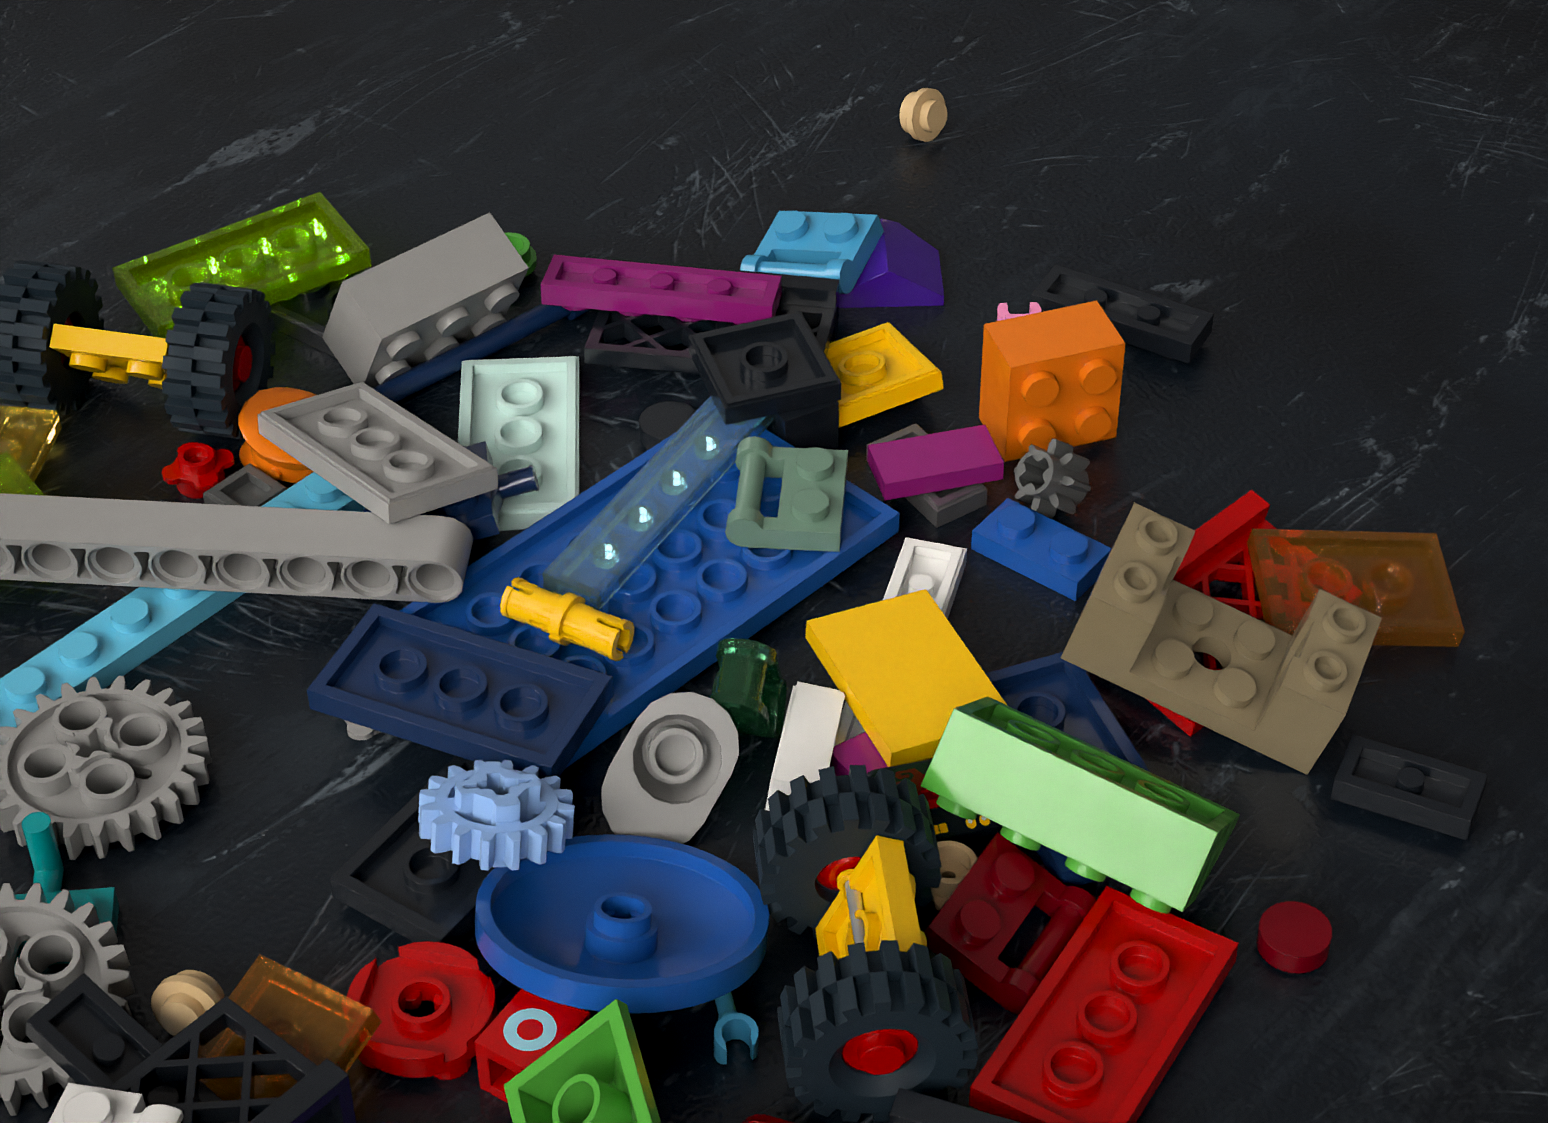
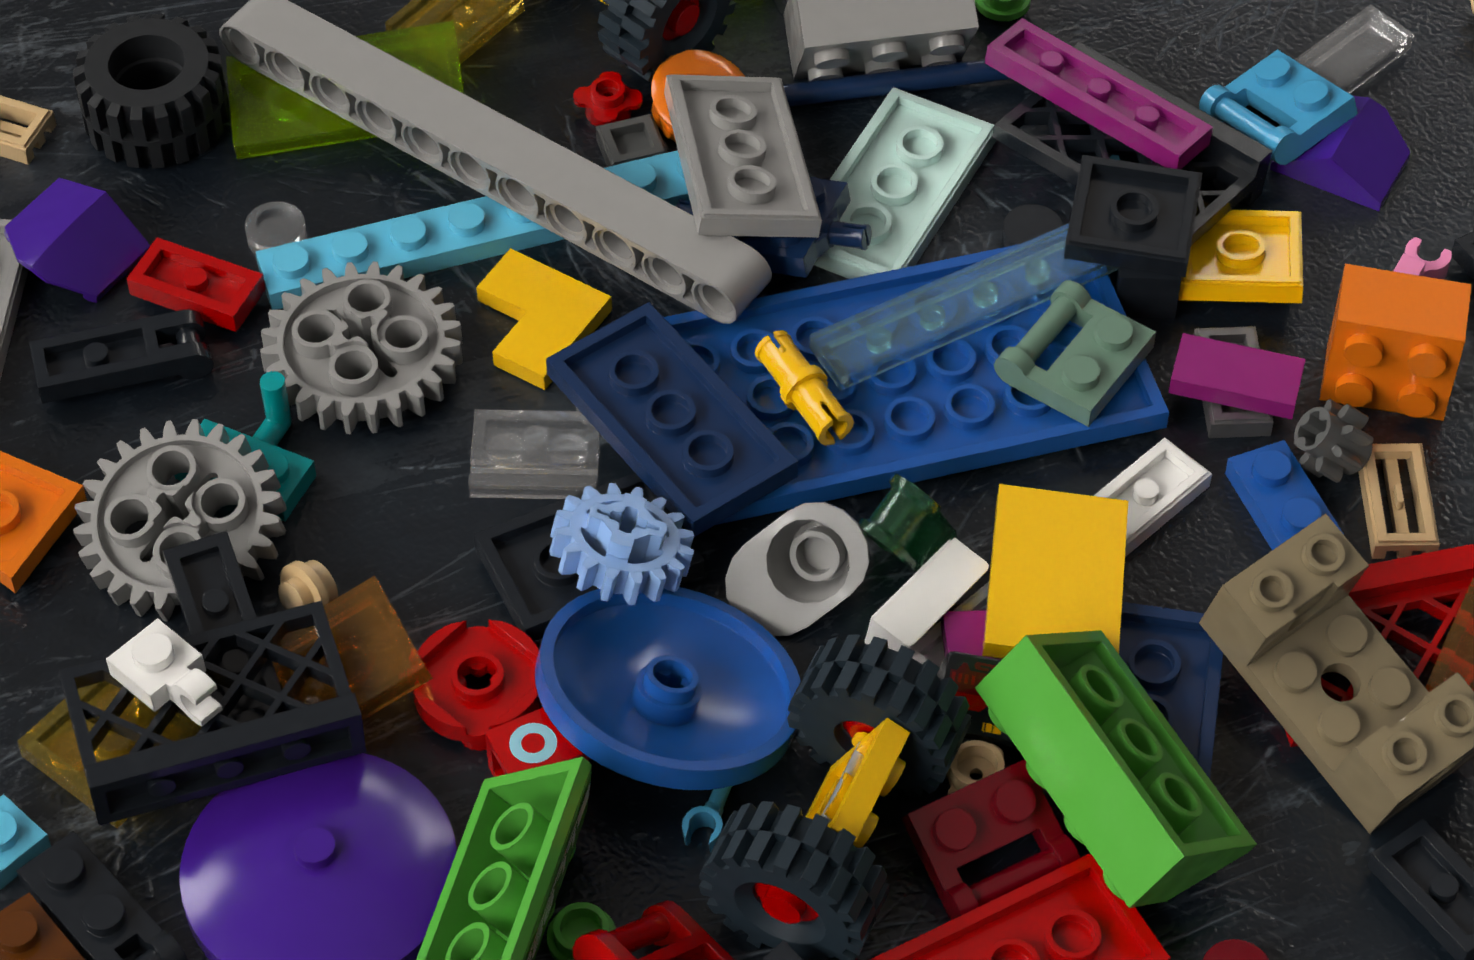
camera: 30 degrees right, 10 degrees up
(266, 662) = (549, 311): none -> yellow tile
(337, 788) = (532, 454): none -> clear plate
(840, 186) = (1358, 49): none -> clear tile
(1112, 506) = (1400, 539): none -> tan tile

